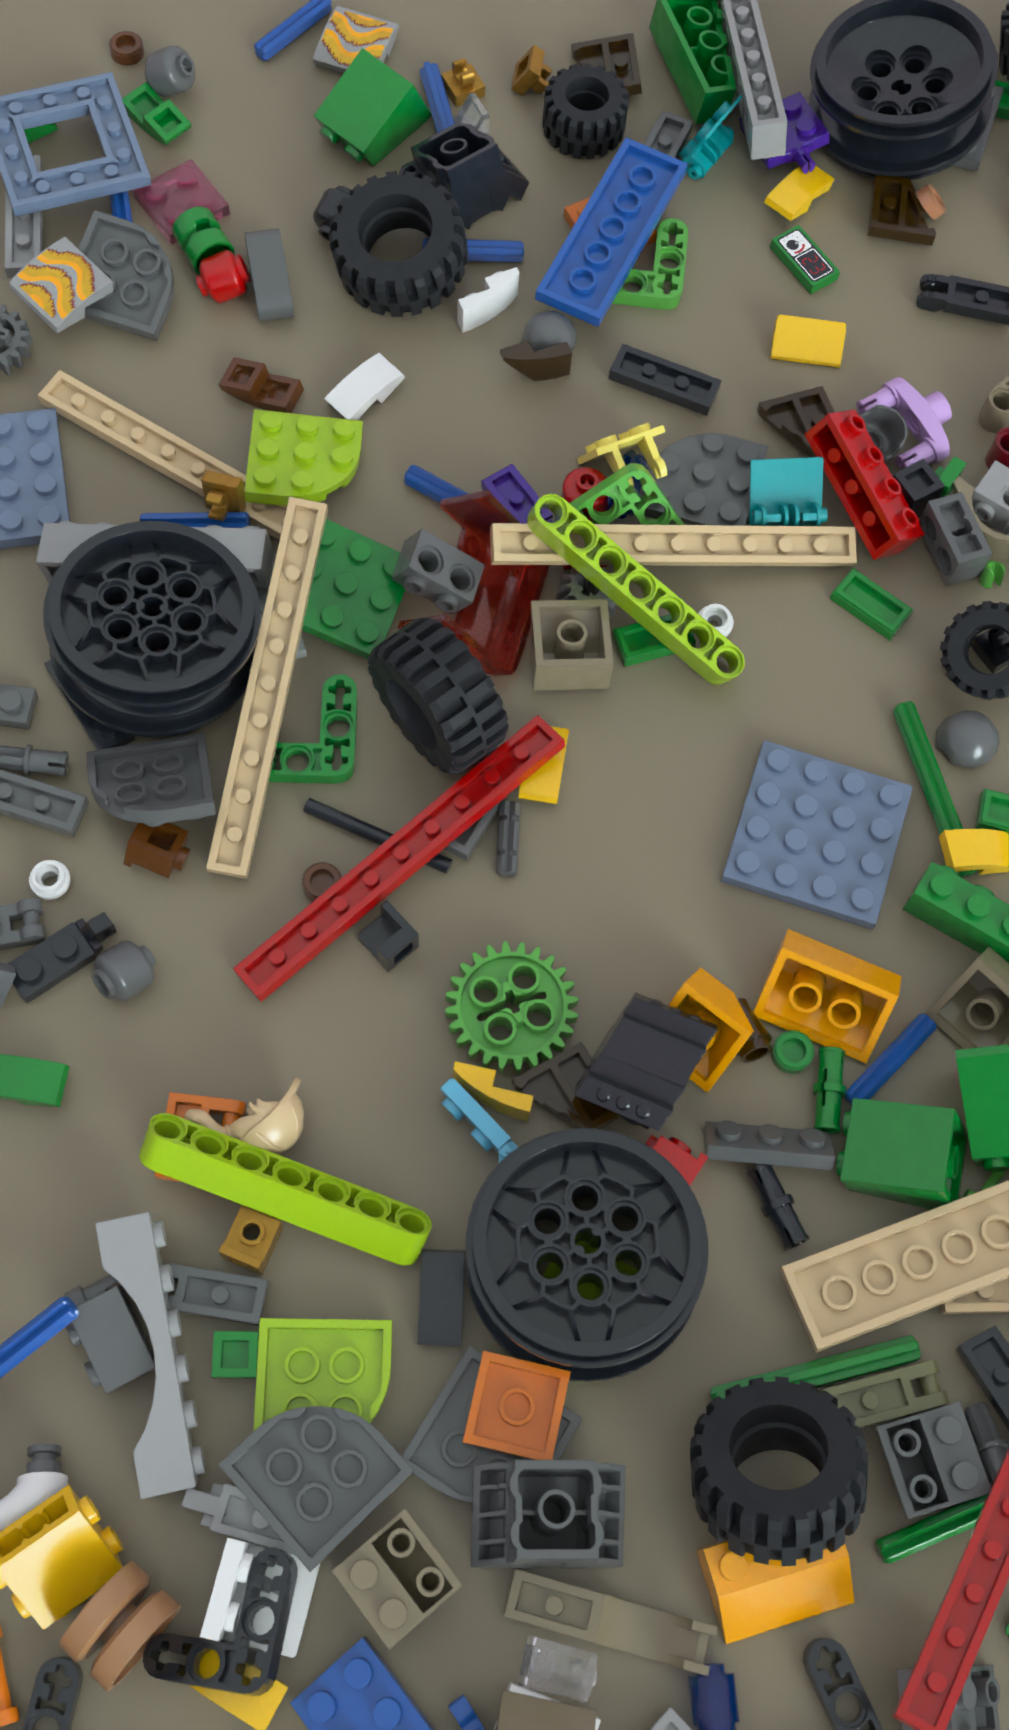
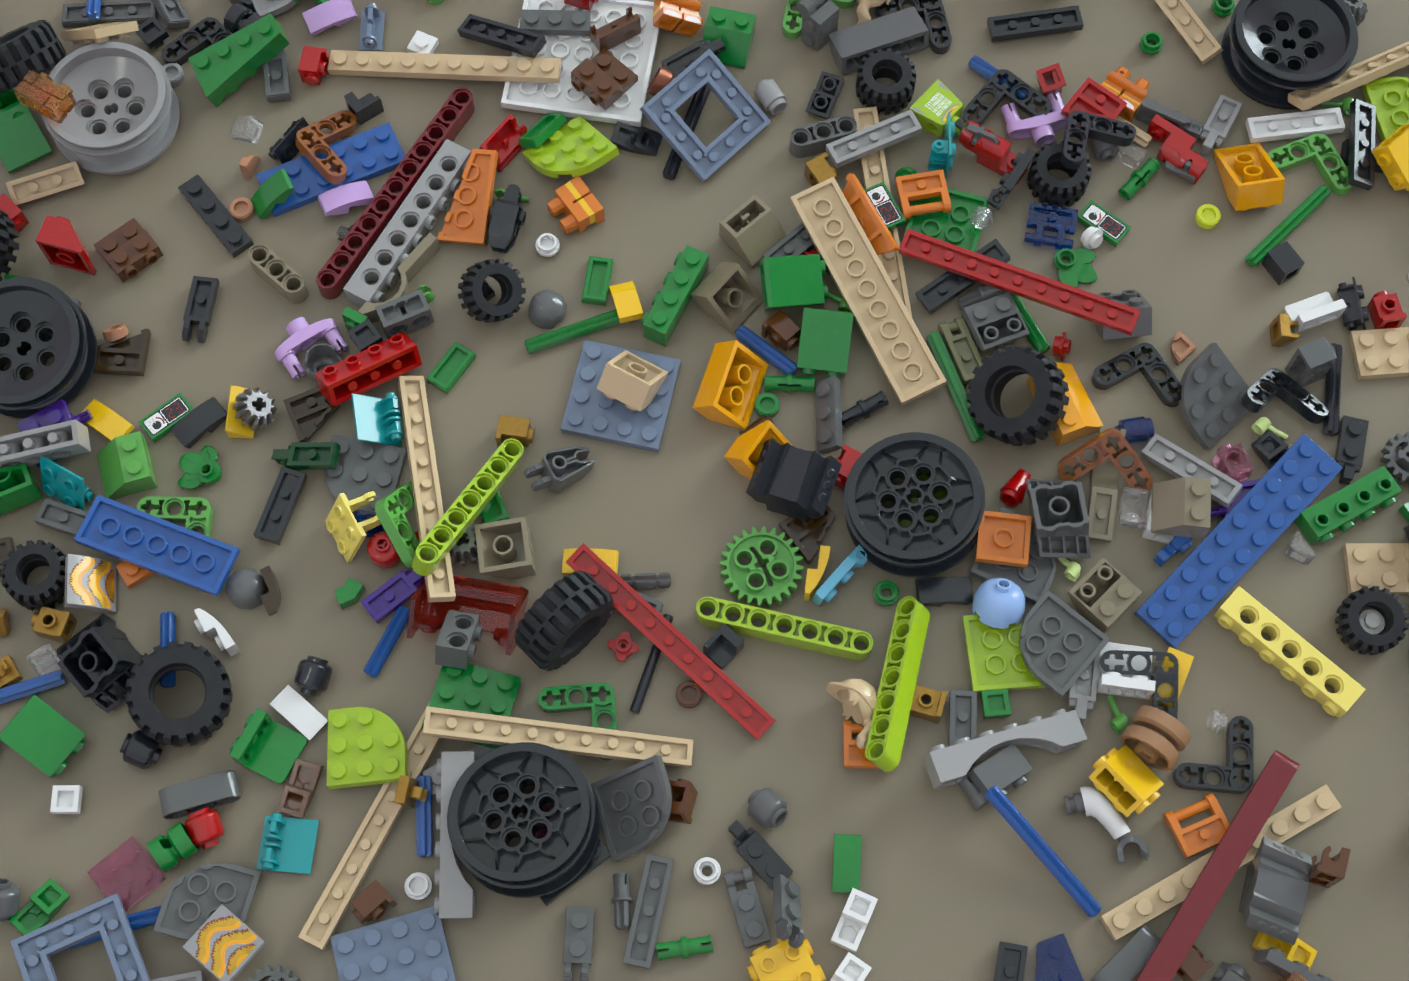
camera: 90 degrees left, 0 degrees up
(89, 457) = (372, 903): none -> reddish brown brick
(102, 509) = (418, 886): none -> white plate
(173, 1571) = (1120, 720): none -> bright green hand
(187, 368) = (287, 844): none -> teal hinge
(287, 140) = (66, 799): none -> white plate
(322, 347) = (267, 747): none -> green bracket
(402, 1383) = (999, 603): none -> light blue cylinder
(404, 1048) = (792, 638): none -> lime beam
(411, 807) = (623, 653): none -> red plate
(413, 403) = (313, 675): none -> black head
(453, 1188) = (886, 586): none -> green plate
(455, 1533) = (1073, 569): none -> yellowish green hand
(520, 123) = (59, 629): none -> pearl gold brick
(528, 455) = (349, 593): none -> green piece
(566, 161) = (90, 583): none -> slope
(611, 1445) = (1014, 490): none -> red cone
(667, 1634) = (1104, 452): none -> dark orange beam
(694, 730) = (560, 468): none -> dark grey hinge
(719, 614) = (471, 457): white plate -> none
(727, 293) = (200, 468): none -> green plate
(733, 411) = (308, 456): none -> dark green hinge
(735, 214) = (126, 466): none -> bright green slope
(760, 673) = (514, 428): none -> pearl gold brick
(795, 290) = (196, 423): none -> black slope
(819, 341) = (249, 402): none -> flat silver gear
(835, 837) = (631, 380): none -> tan slope
(888, 1585) = (1061, 346): none -> red plate
(924, 1082) = (781, 331): none -> reddish brown brick

